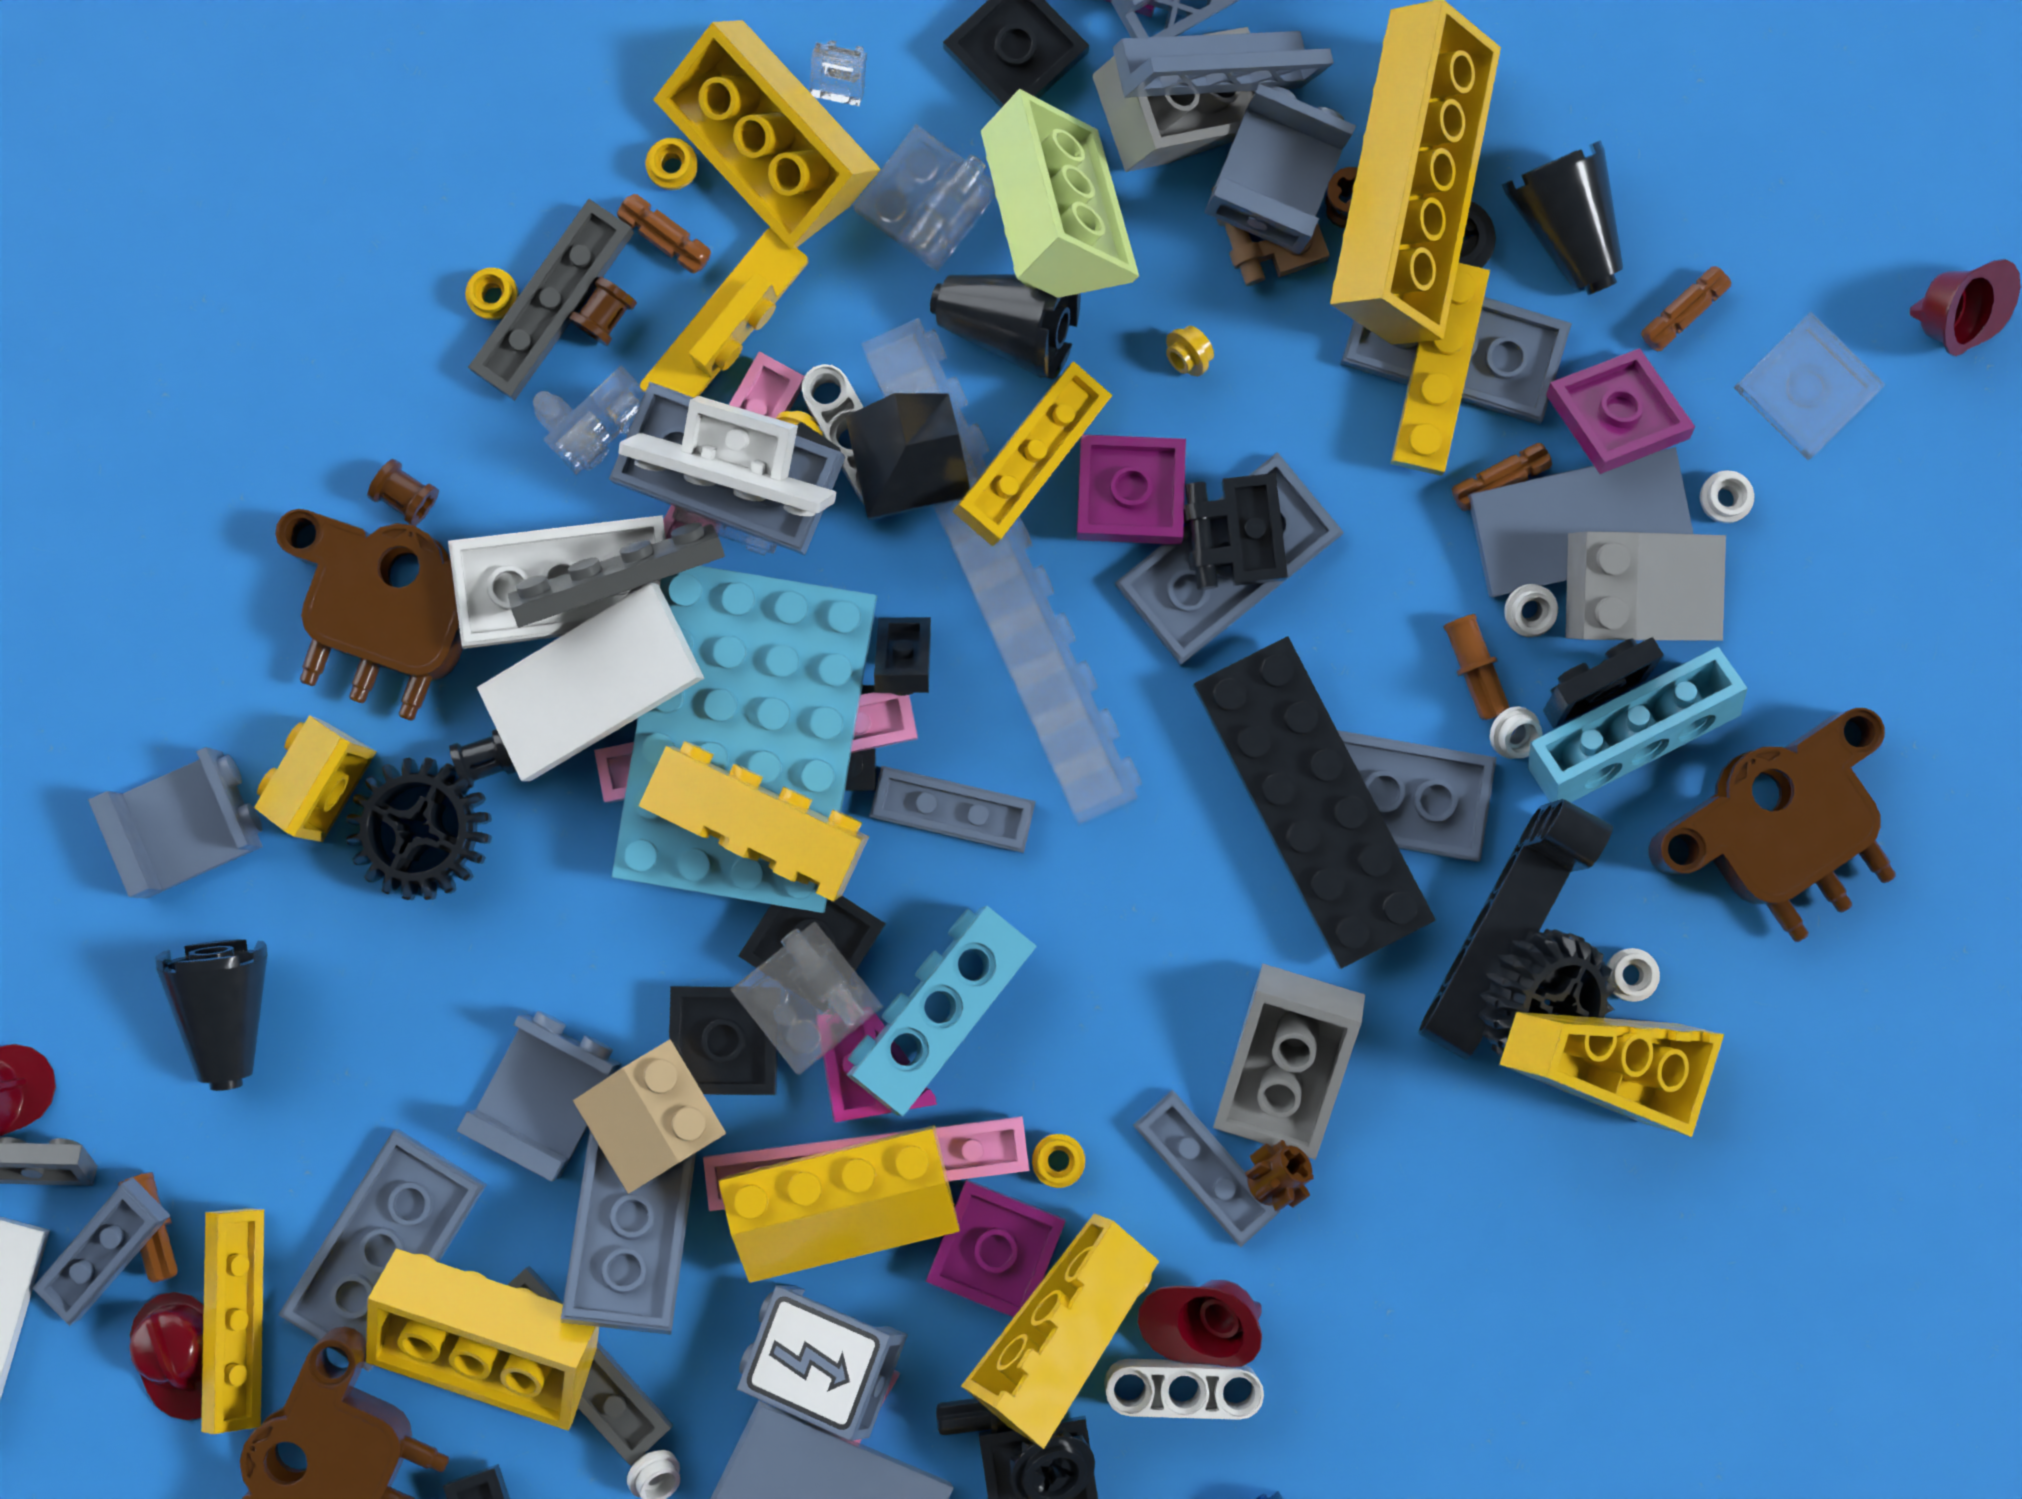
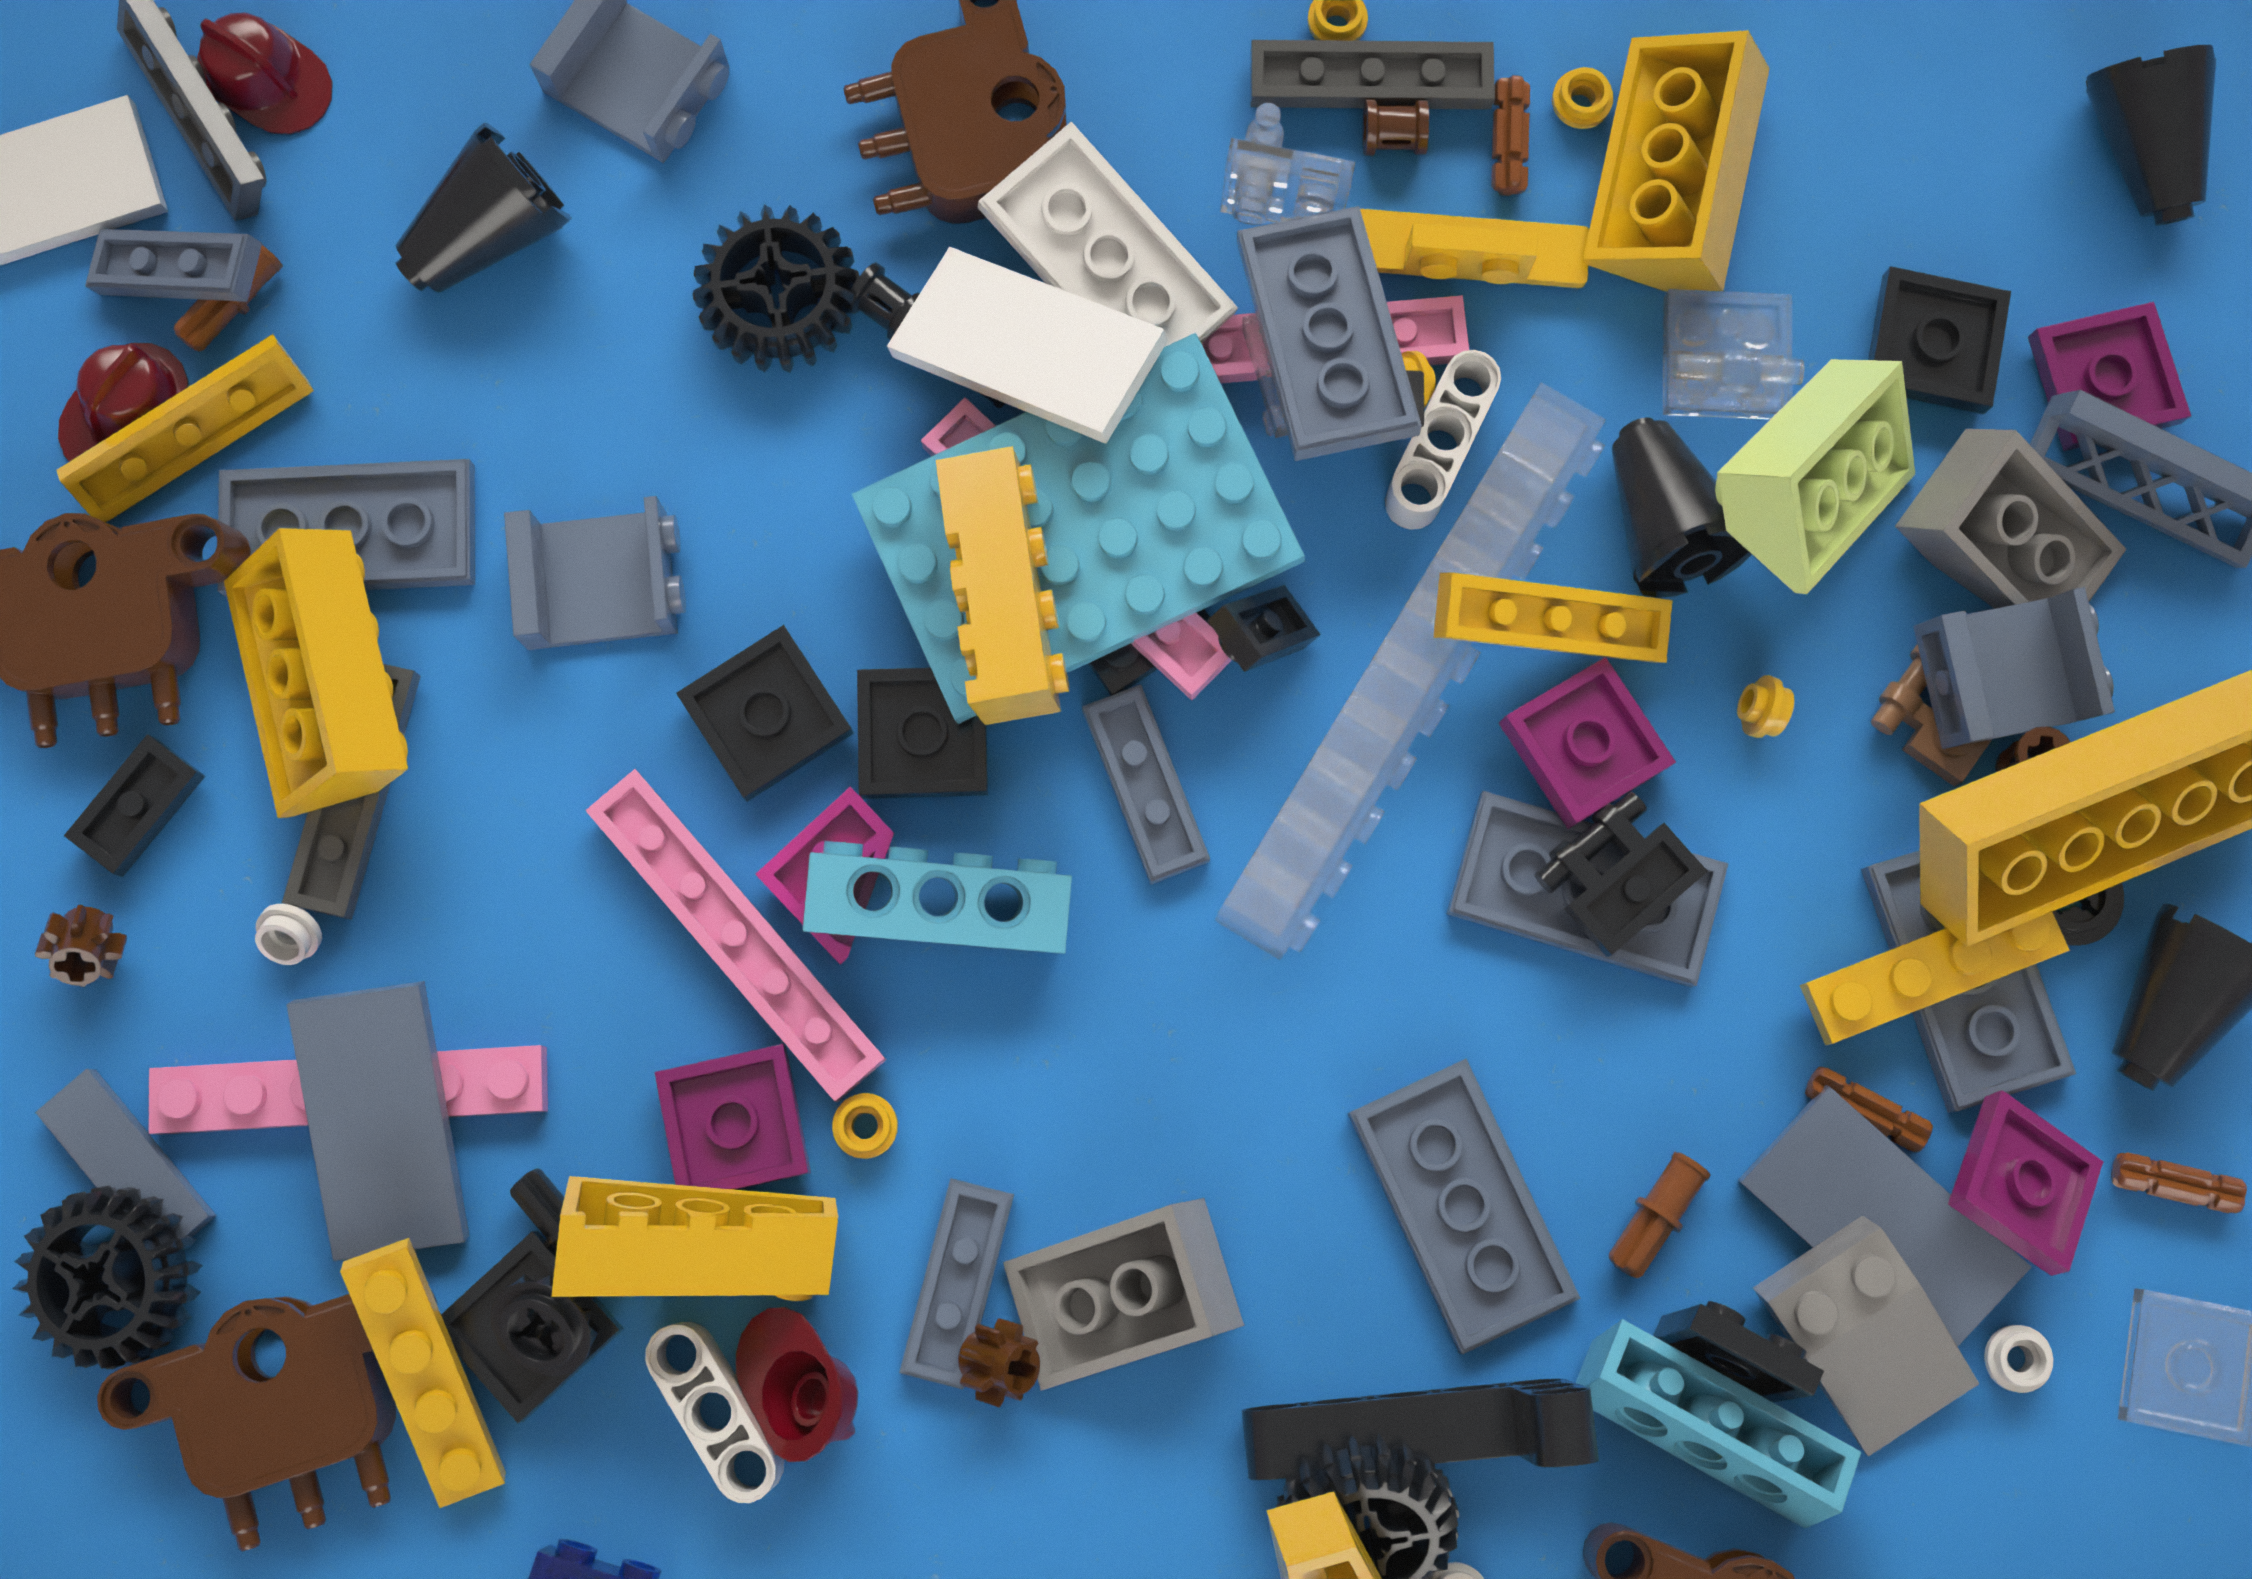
camera: 50 degrees right, 5 degrees down
(313, 779) = (757, 161): yellow slope -> none
(402, 492) = (1089, 61): reddish brown bush -> none
(595, 580) = (1127, 276): dark grey plate -> none
(627, 1248) = (524, 738): sand blue tile -> none
(649, 1116) = (638, 684): tan slope -> none
(735, 451) = (1350, 321): white bracket -> none
(806, 997) = (859, 759): clear plate -> none
(820, 1363) = (501, 1021): panel -> none
(838, 73) = (1784, 190): clear tile -> none
(839, 1204) = (674, 931): yellow slope -> none
(907, 453) = (1466, 495): black slope -> none
(1216, 63) = (2070, 535): sand blue fence -> none
(1313, 802) = (1402, 1140): black plate -> none
(1518, 744) = (1614, 1283): white plate -> none
(1544, 617) = (1755, 1251): white plate -> none

